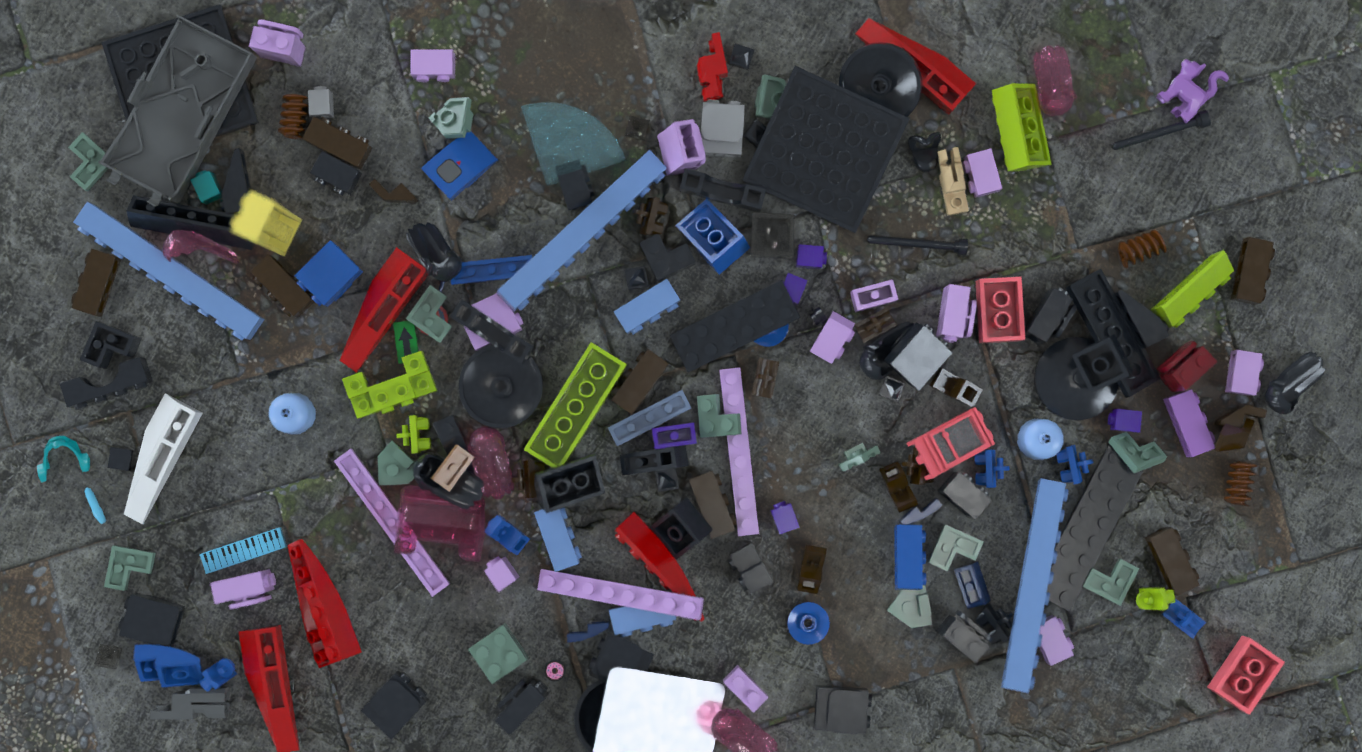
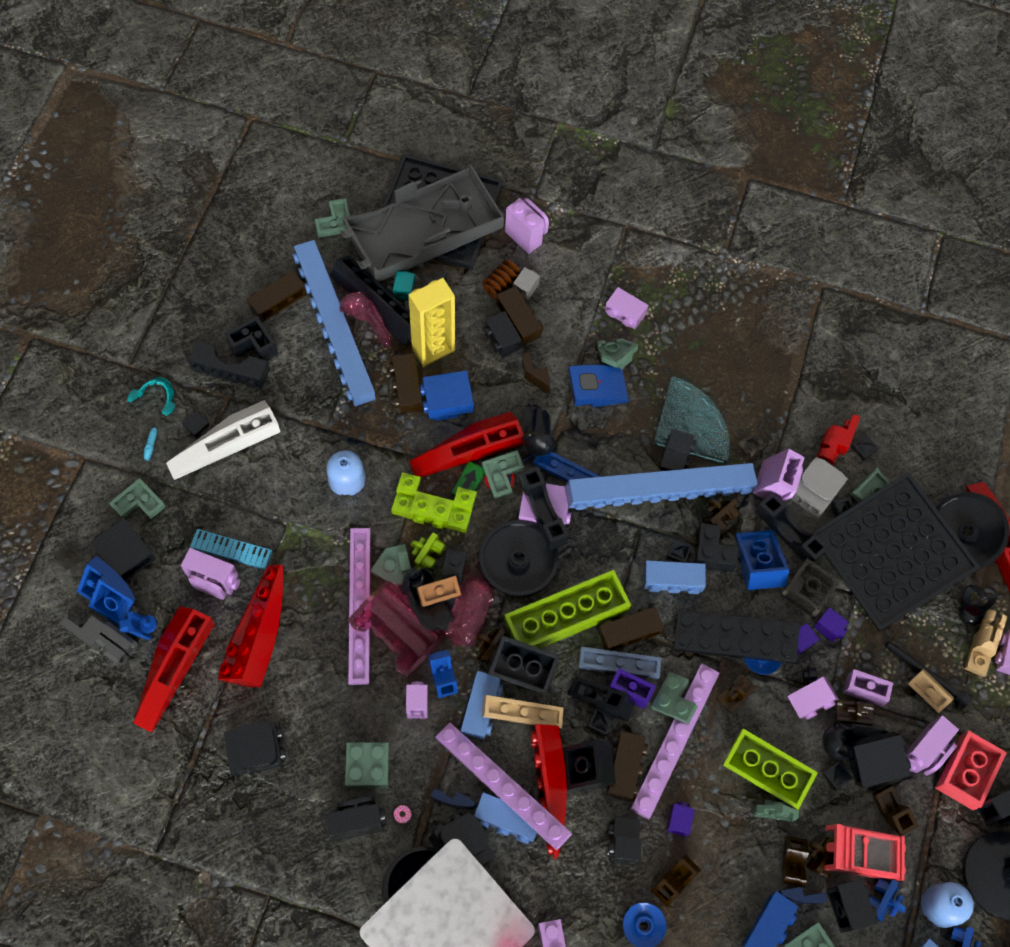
camera: 30 degrees right, 20 degrees down
(596, 521) = (521, 711): none -> tan plate
(832, 426) = (770, 768): none -> lime slope
(929, 259) = (931, 690): none -> tan plate

